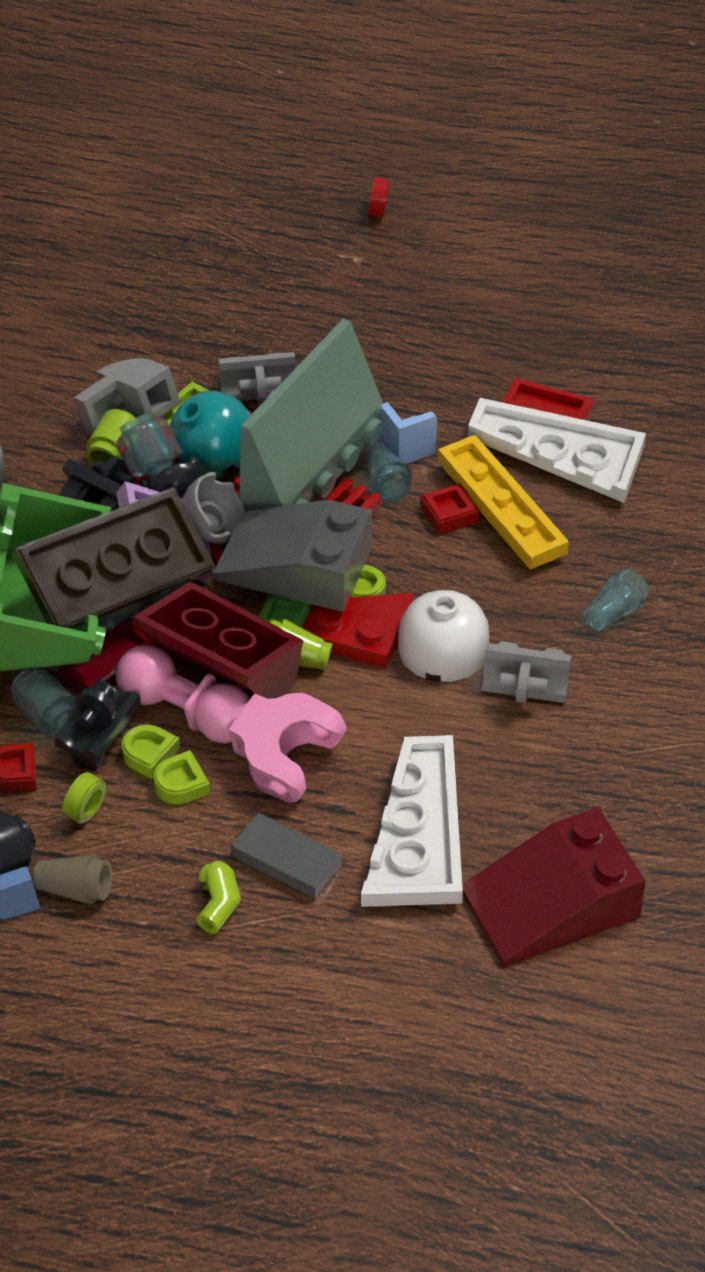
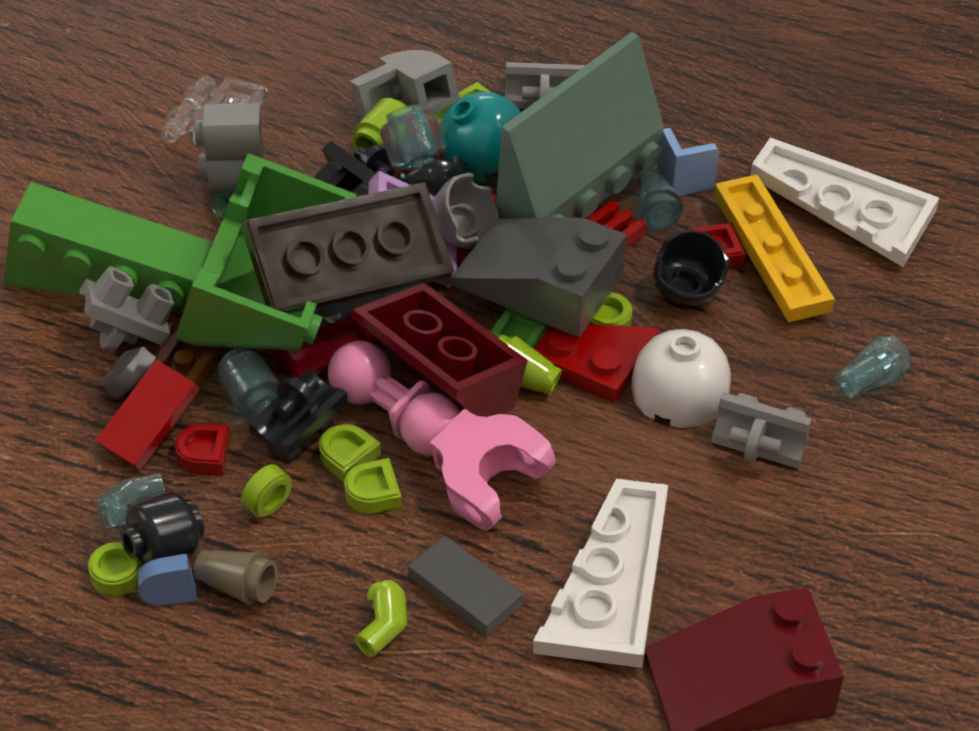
camera: 10 degrees right, 0 degrees up
(432, 532) = (690, 268): none -> black hair
(549, 399) = (844, 149): red tile -> none

